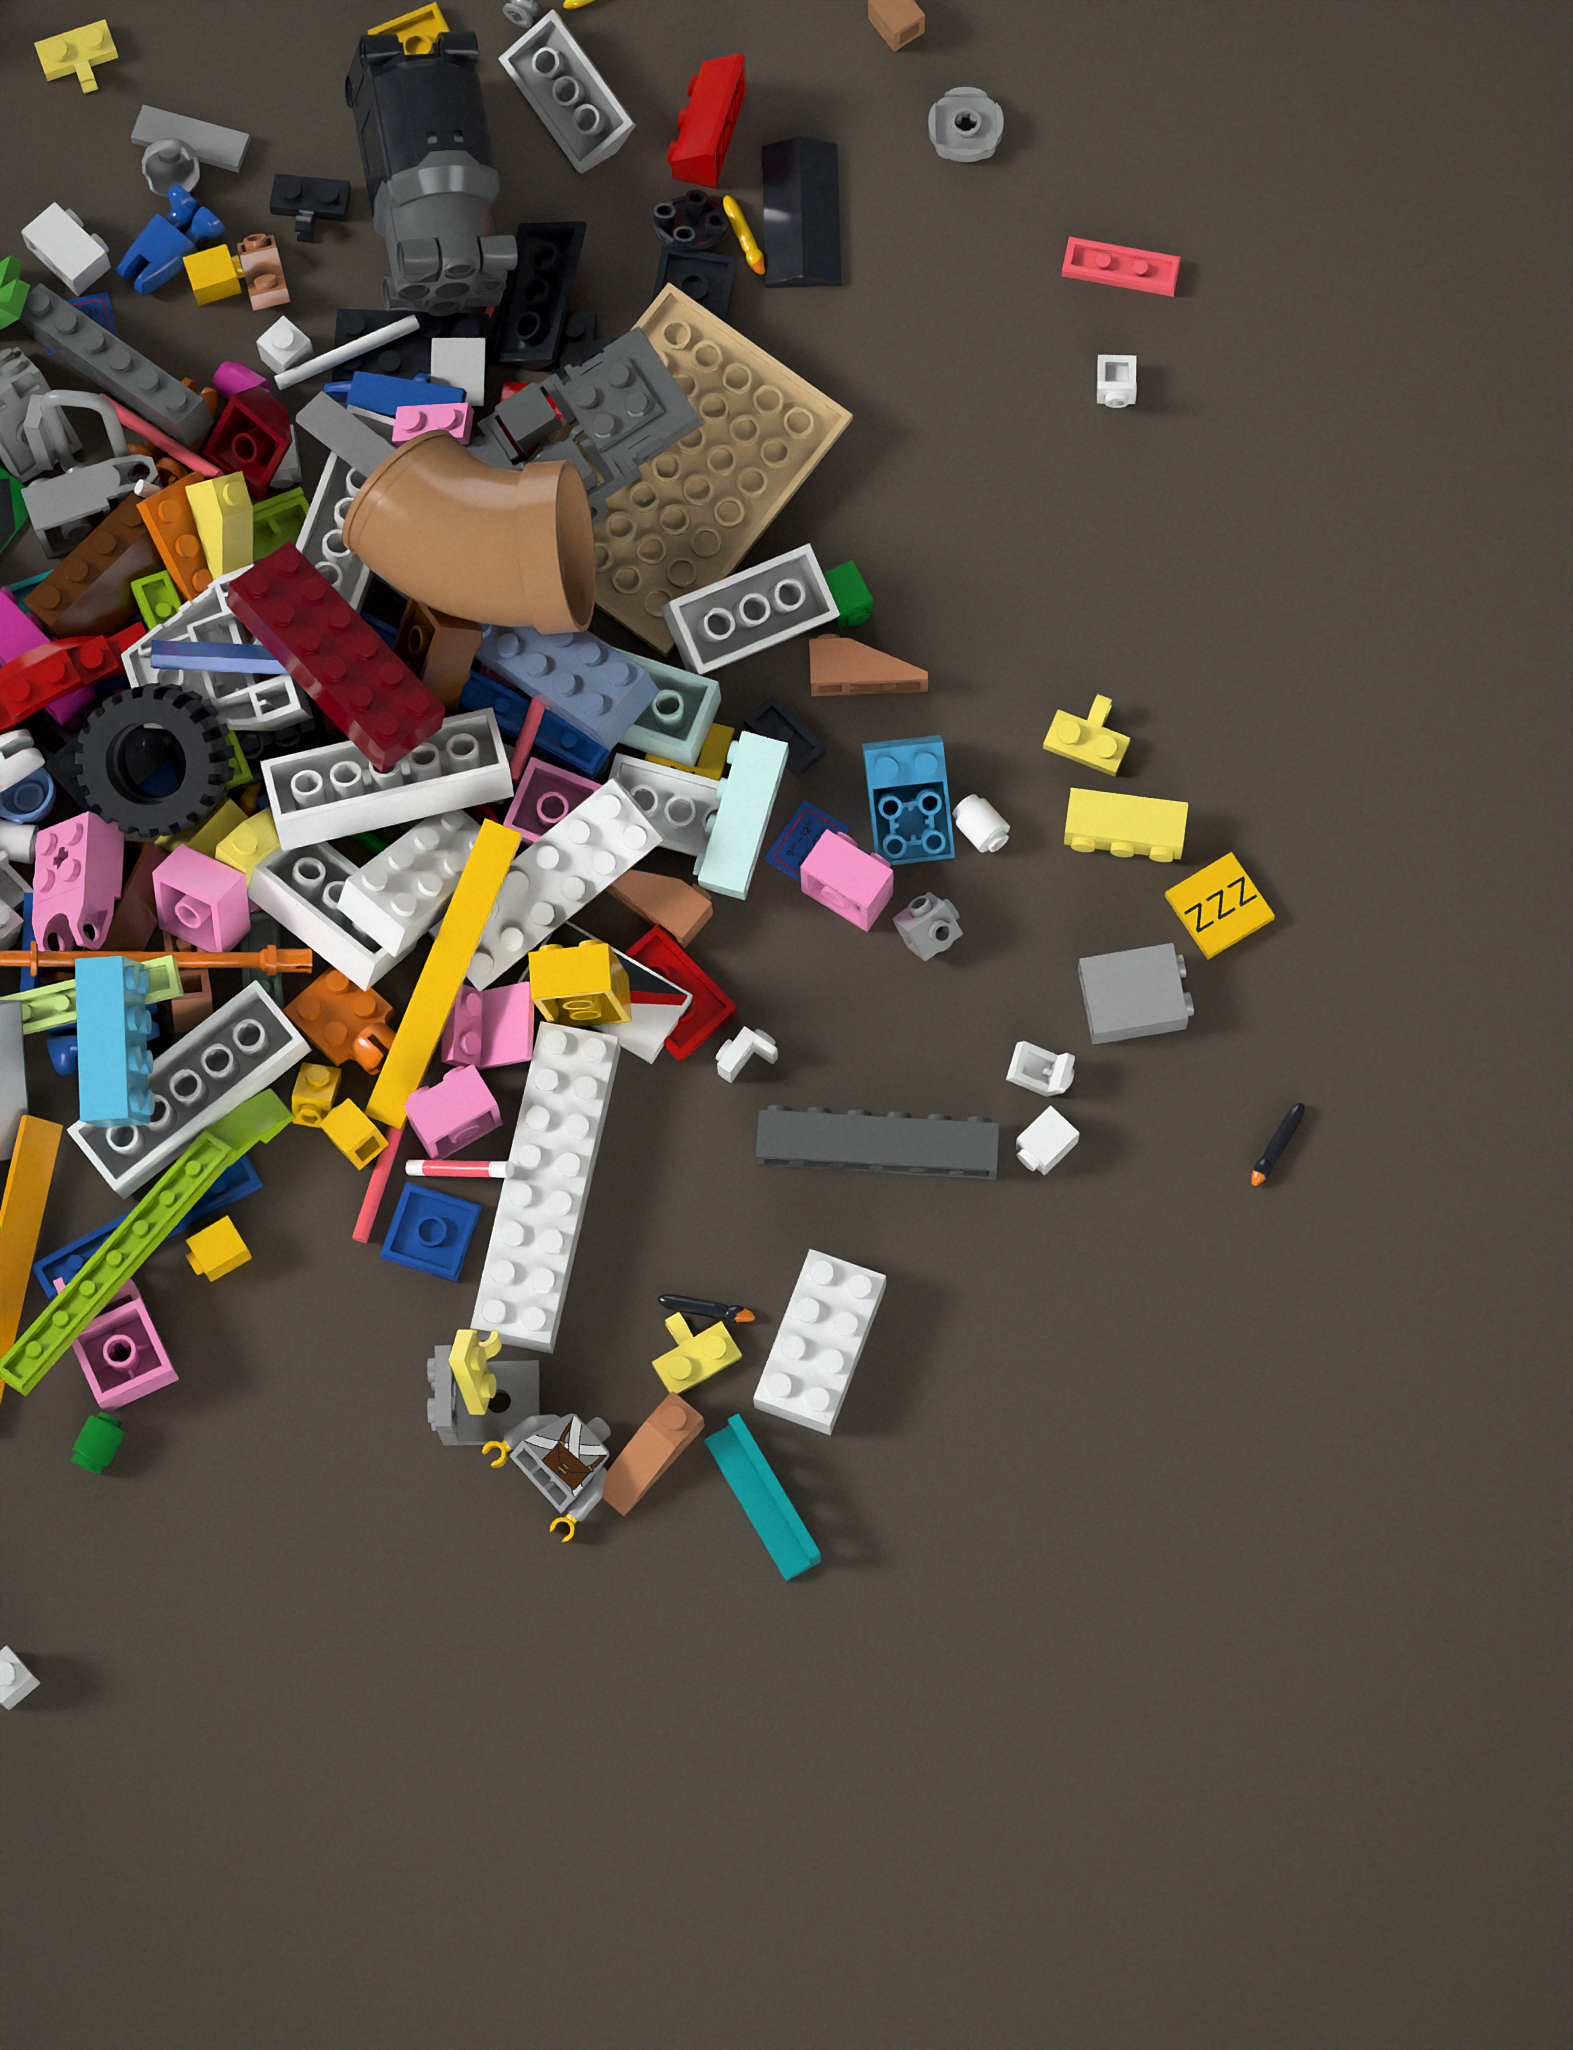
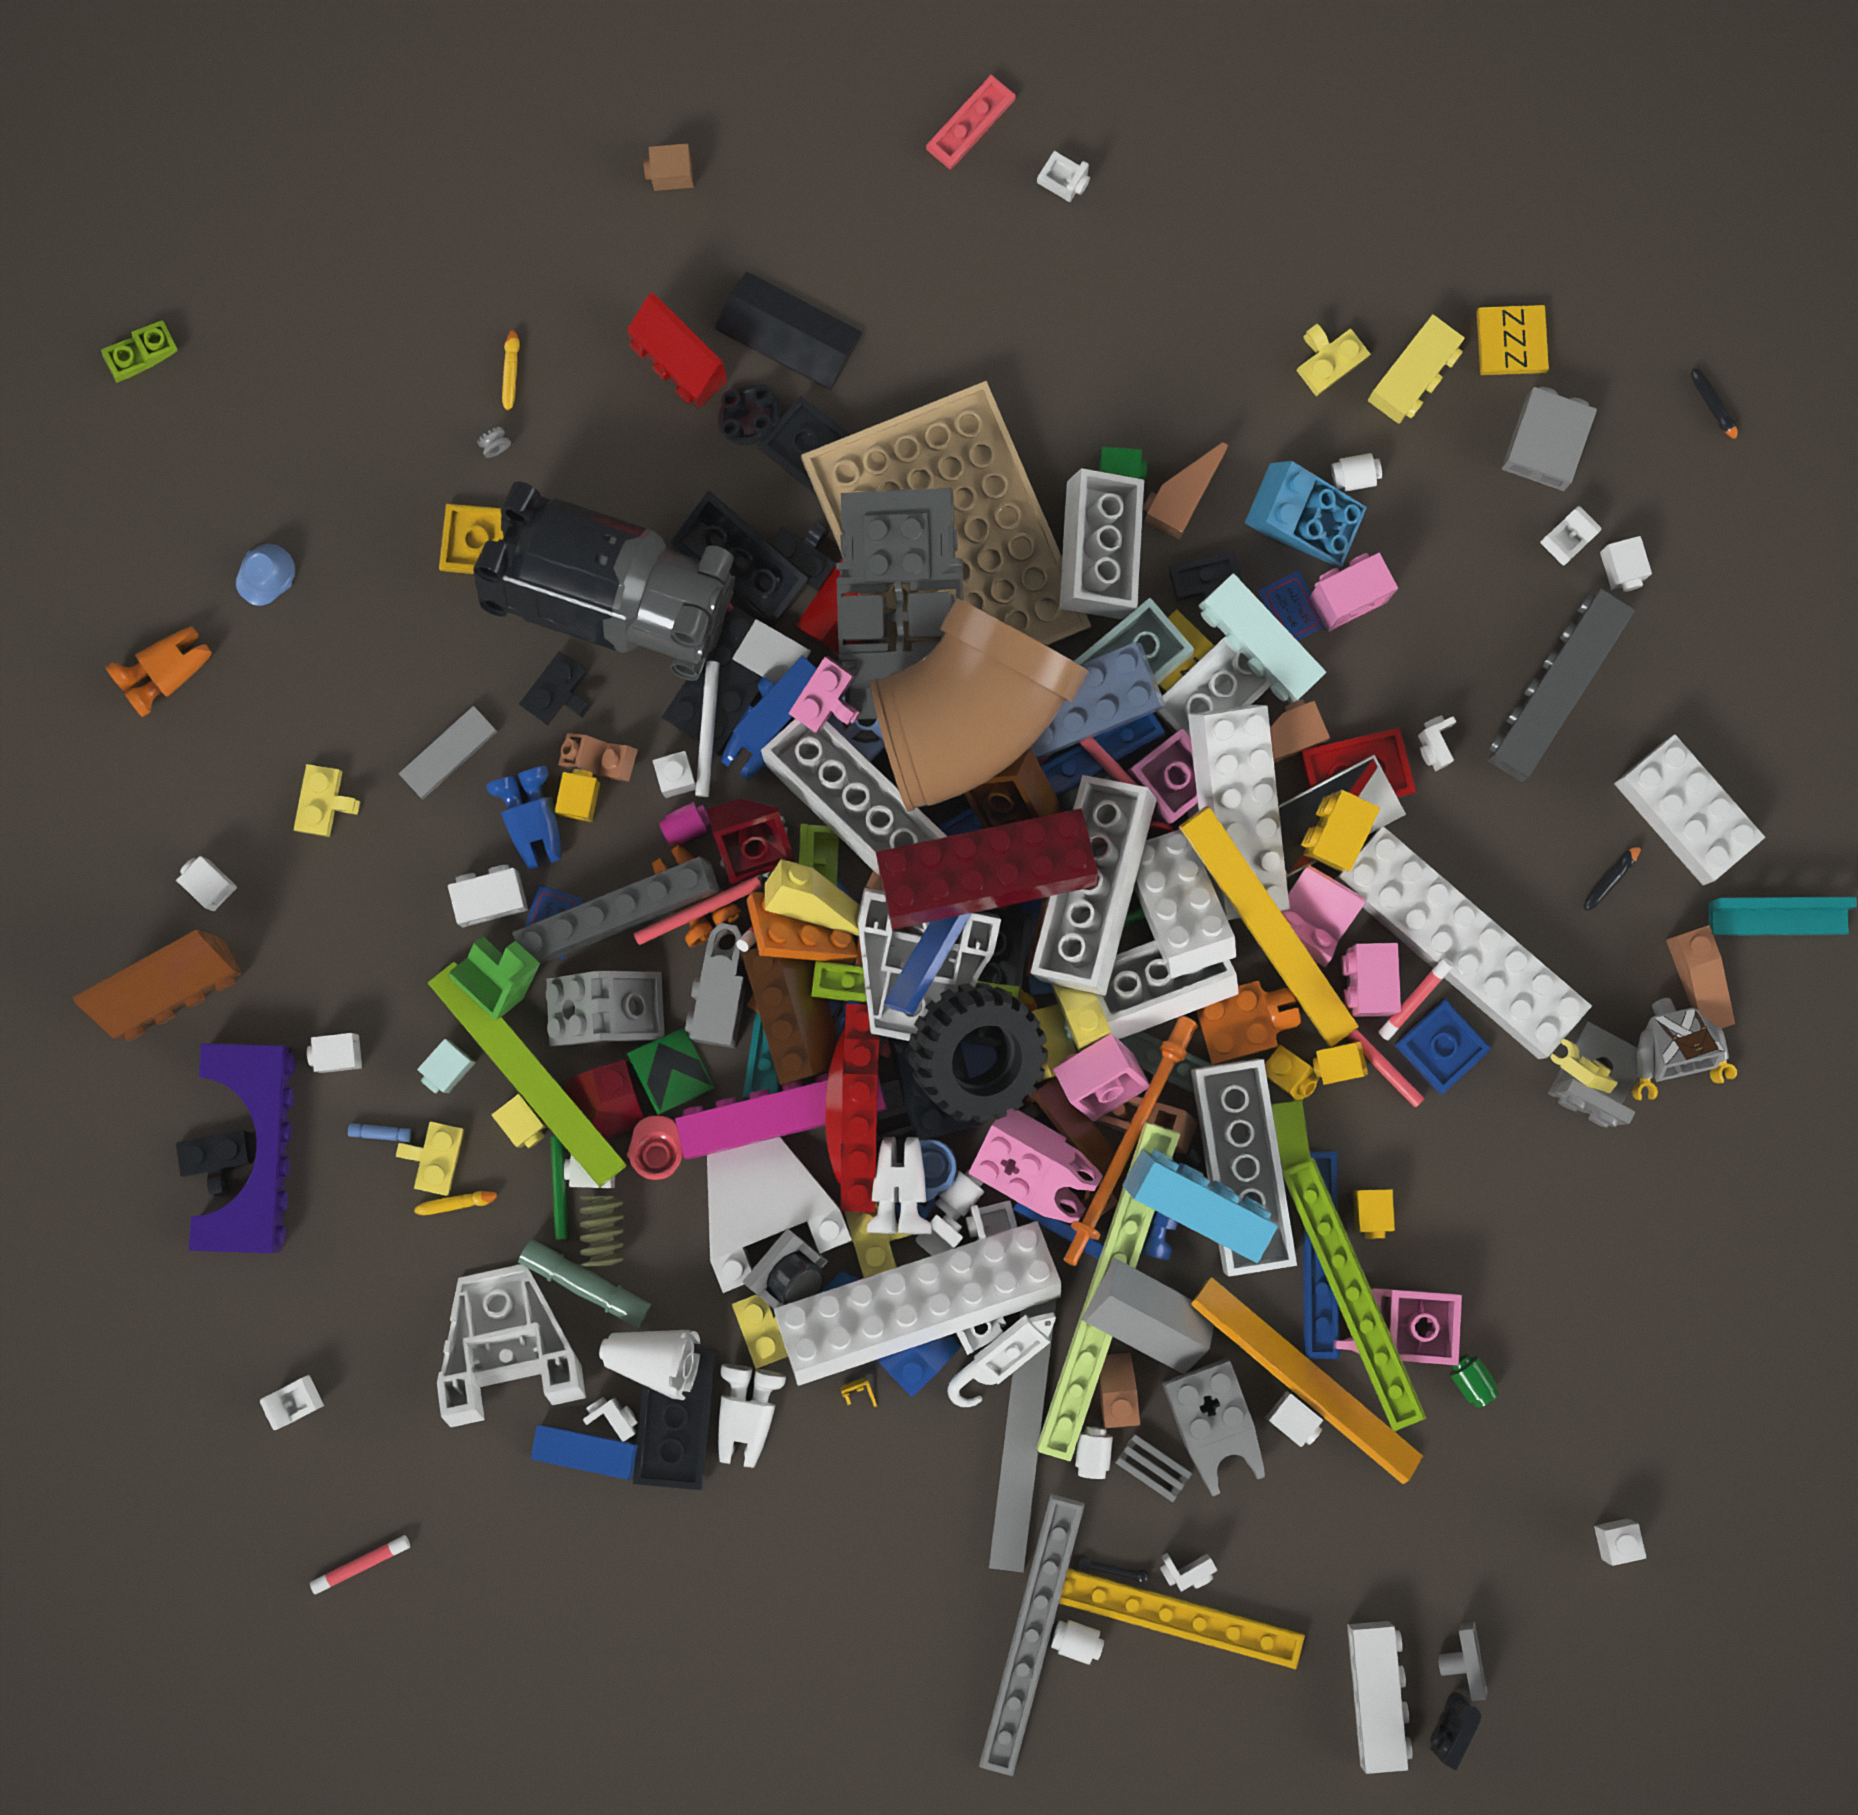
camera: 65 degrees left, 10 degrees up
(47, 433) = (653, 990): light grey bar -> none
(169, 163) = (467, 779): light grey hair -> none
(344, 434) = (798, 762): light grey tile -> none
(568, 93) = (585, 445): light grey slope -> none
(695, 1356) = (1645, 906): light yellow plate -> none
(753, 254) = (780, 381): yellow piece -> none
(928, 925) = (1417, 554): light grey brick -> none
(965, 145) = (785, 150): light grey plate -> none

